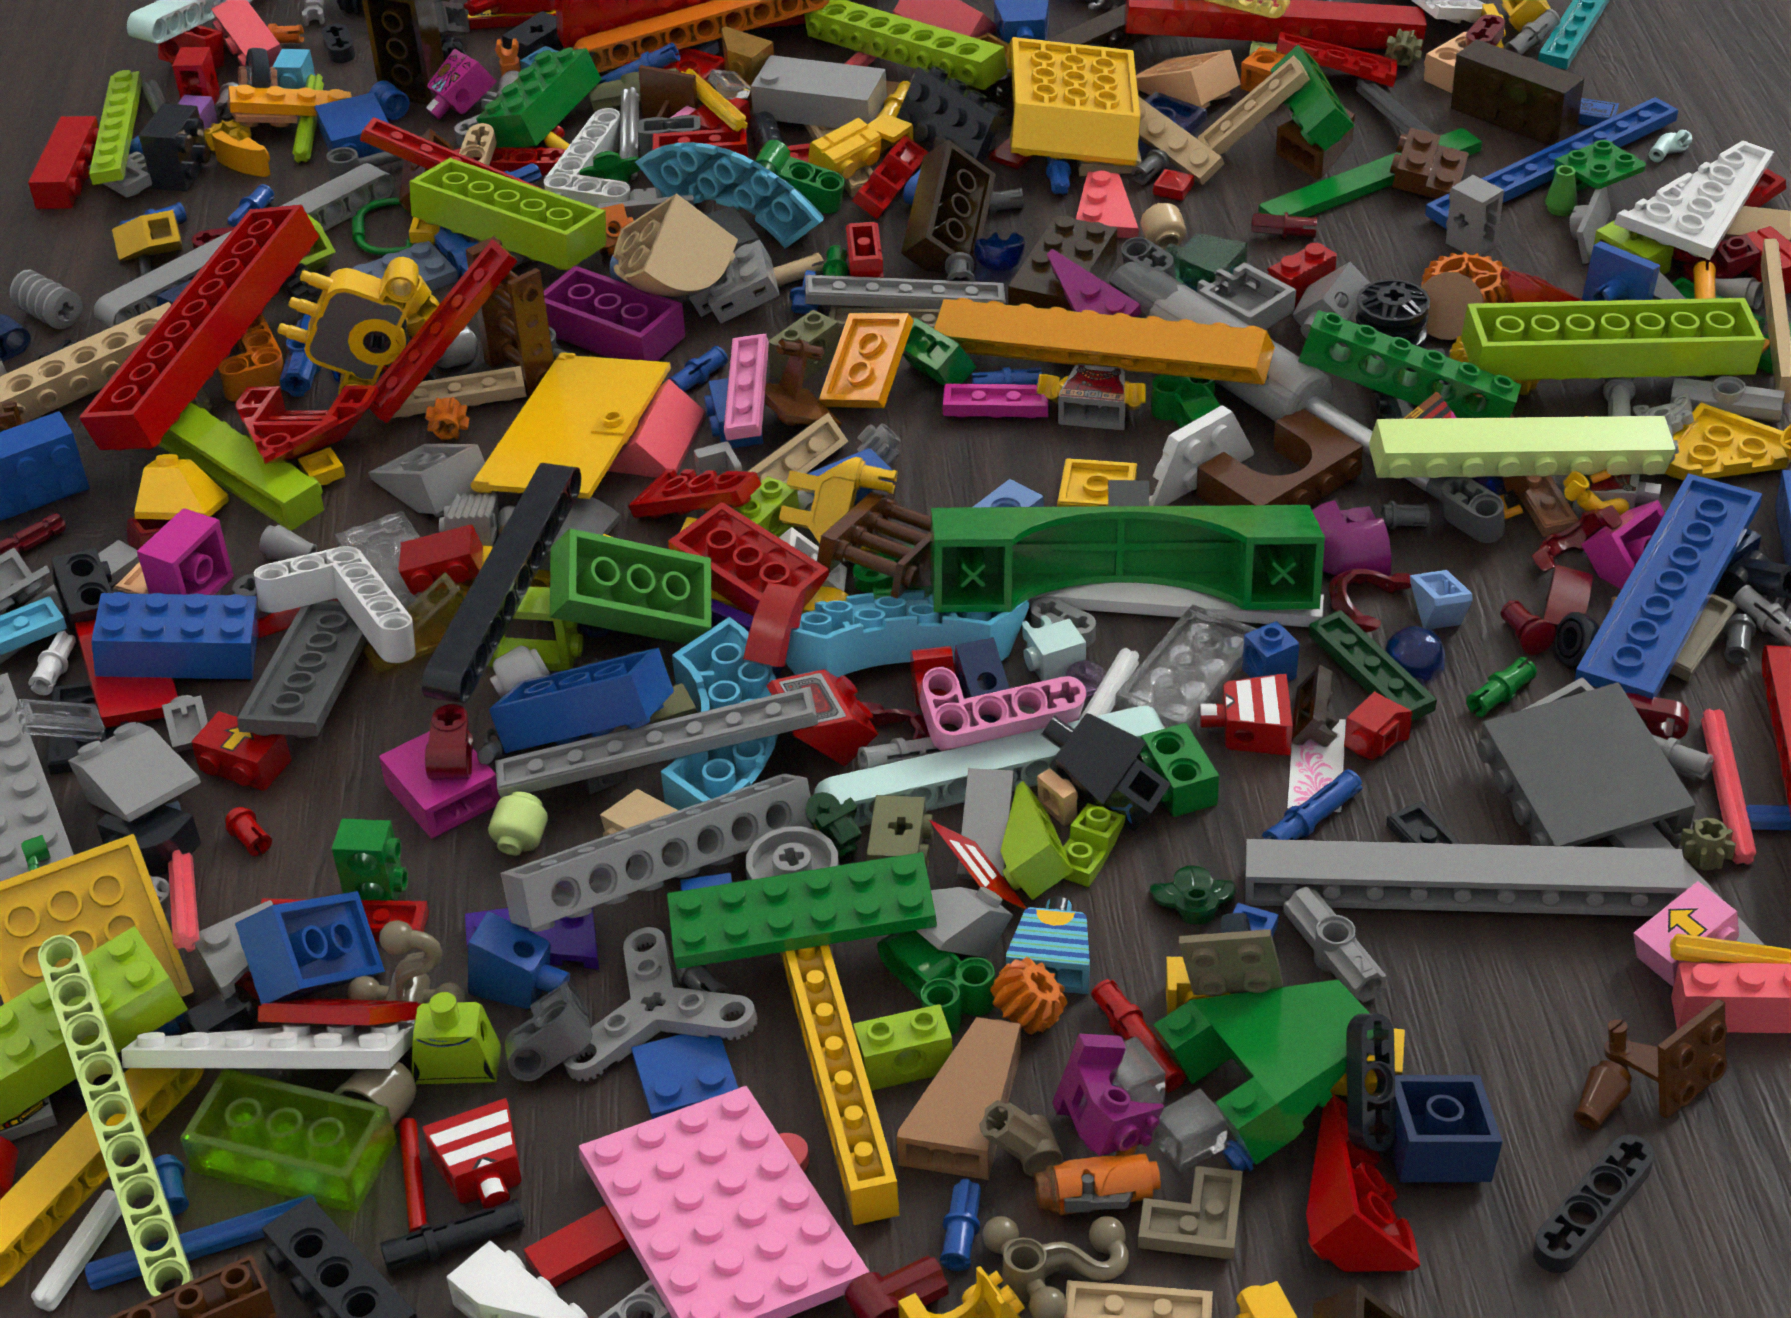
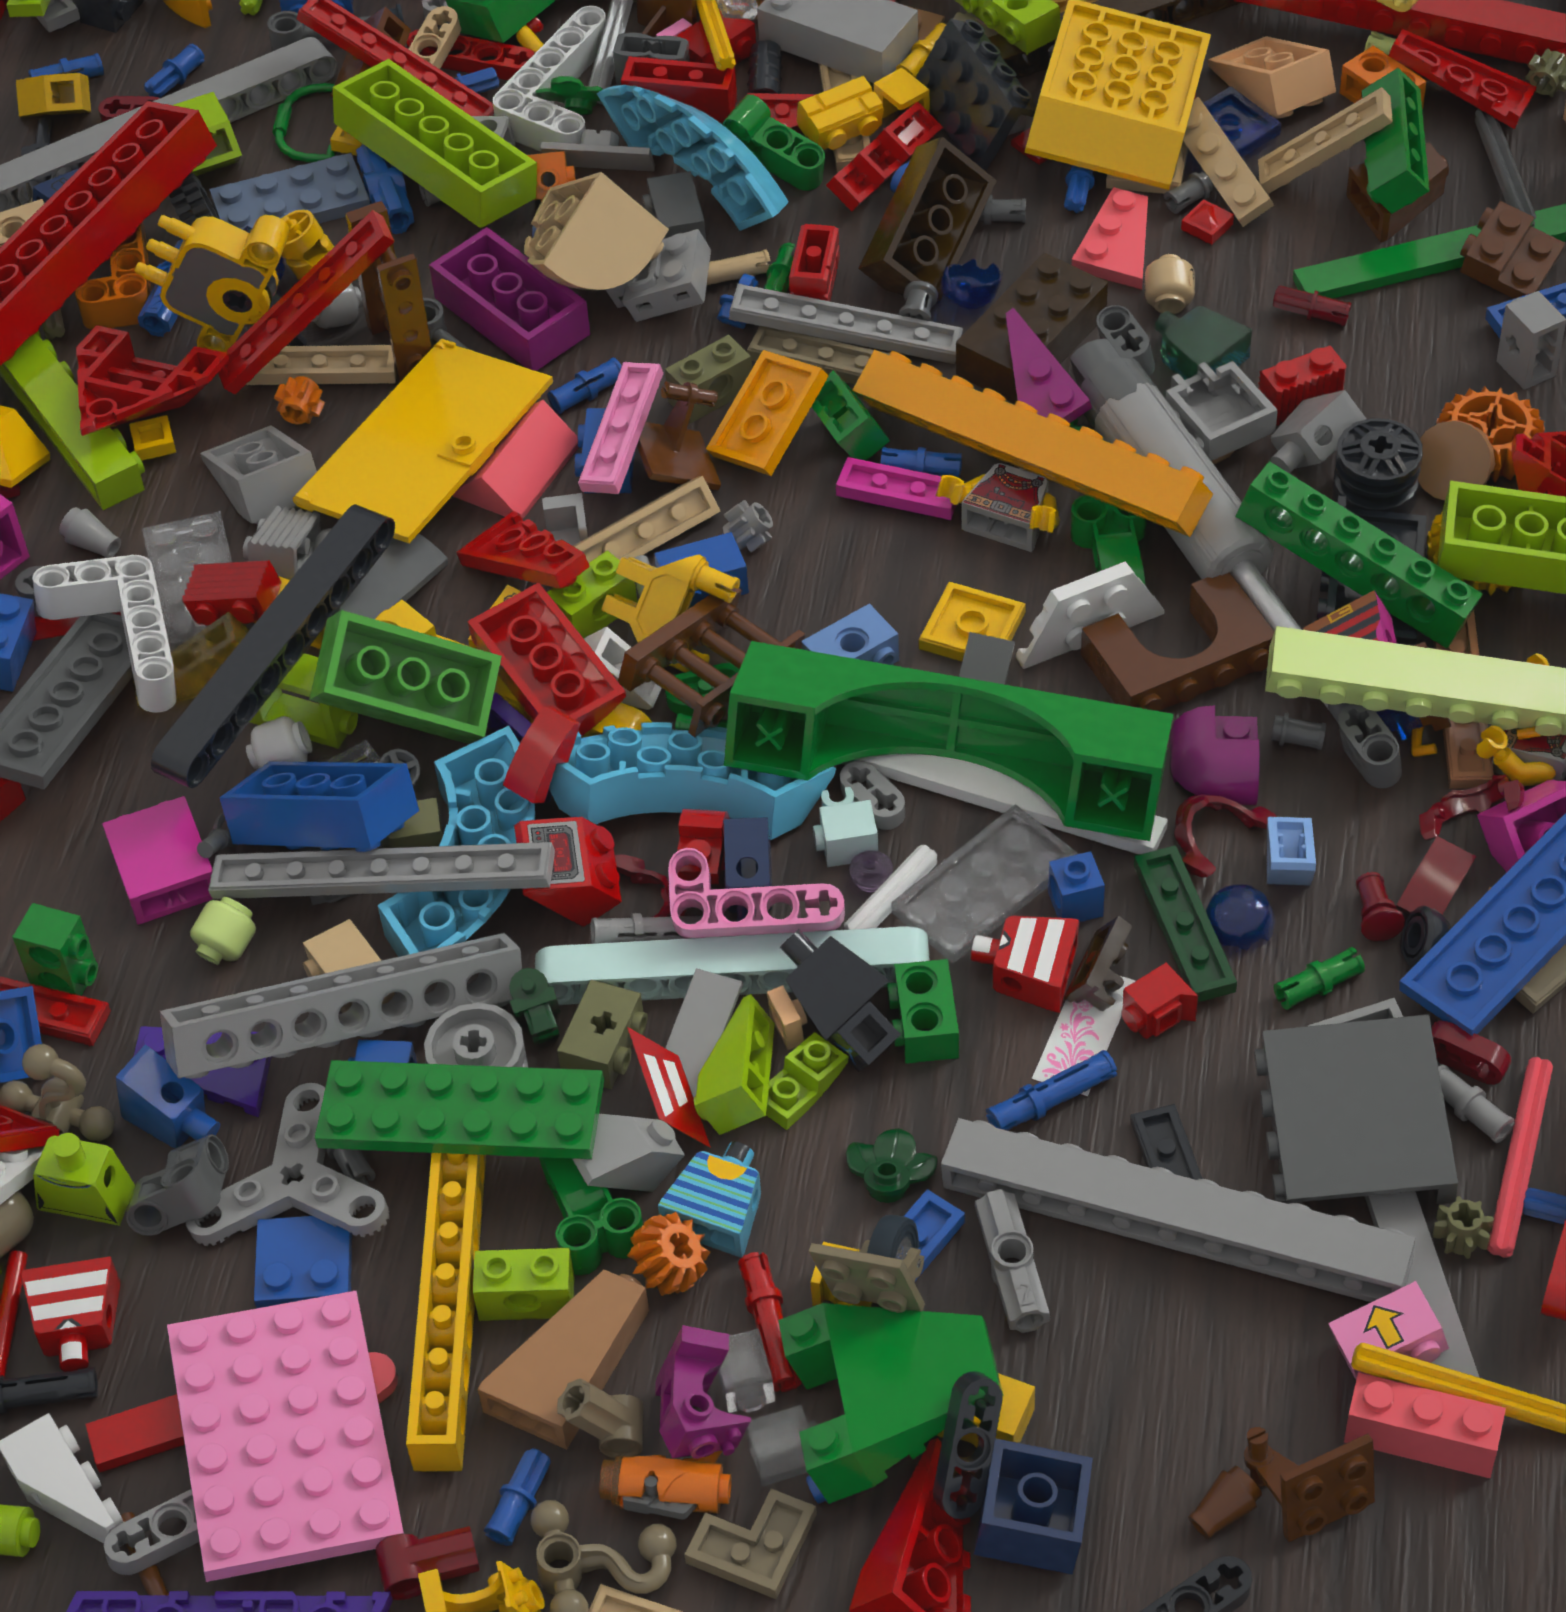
camera: 15 degrees right, 10 degrees up
(449, 744) = (170, 830): dark red piece -> none

